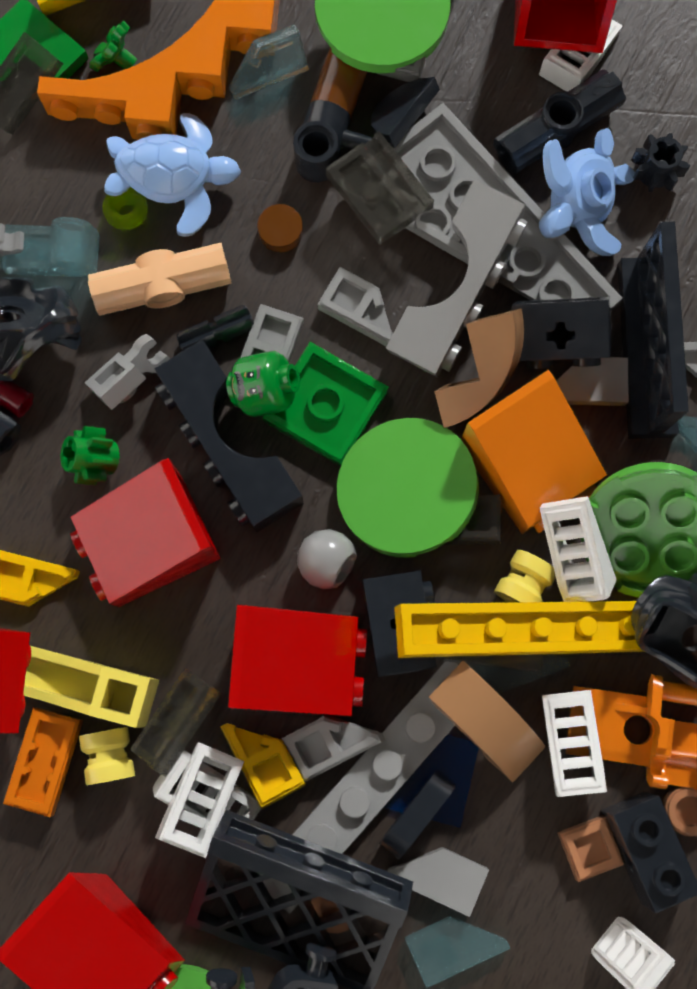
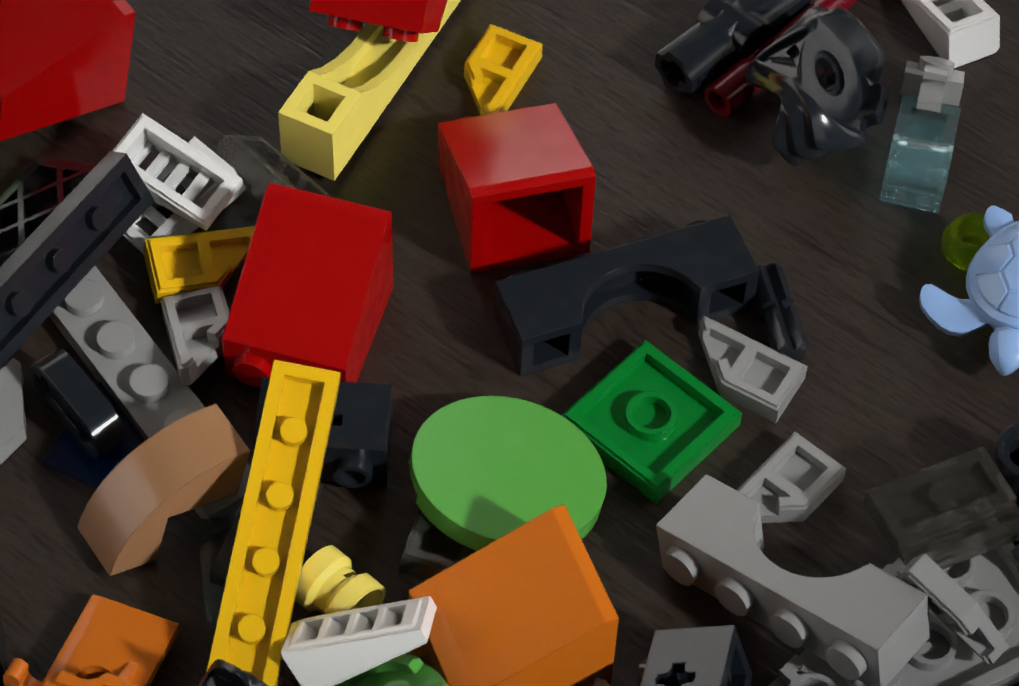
camera: 100 degrees right, 25 degrees down
(43, 762) = (267, 50): orange plate -> none
(89, 455) = (633, 145): green gear -> none
(106, 756) = (254, 106): light yellow wheel -> none
(123, 374) = (731, 193): light grey plate -> none
(159, 279) = (861, 260): light nougat piece -> none
(263, 383) = (684, 327): green head -> none
(280, 228) = (917, 413): reddish brown tile -> none
(326, 558) = (433, 366): light grey piece -> none
(457, 177) = (955, 607): none -> light grey tile
(496, 351) = (660, 589): medium nougat brick -> none
(582, 785) = (82, 568): white slope -> none

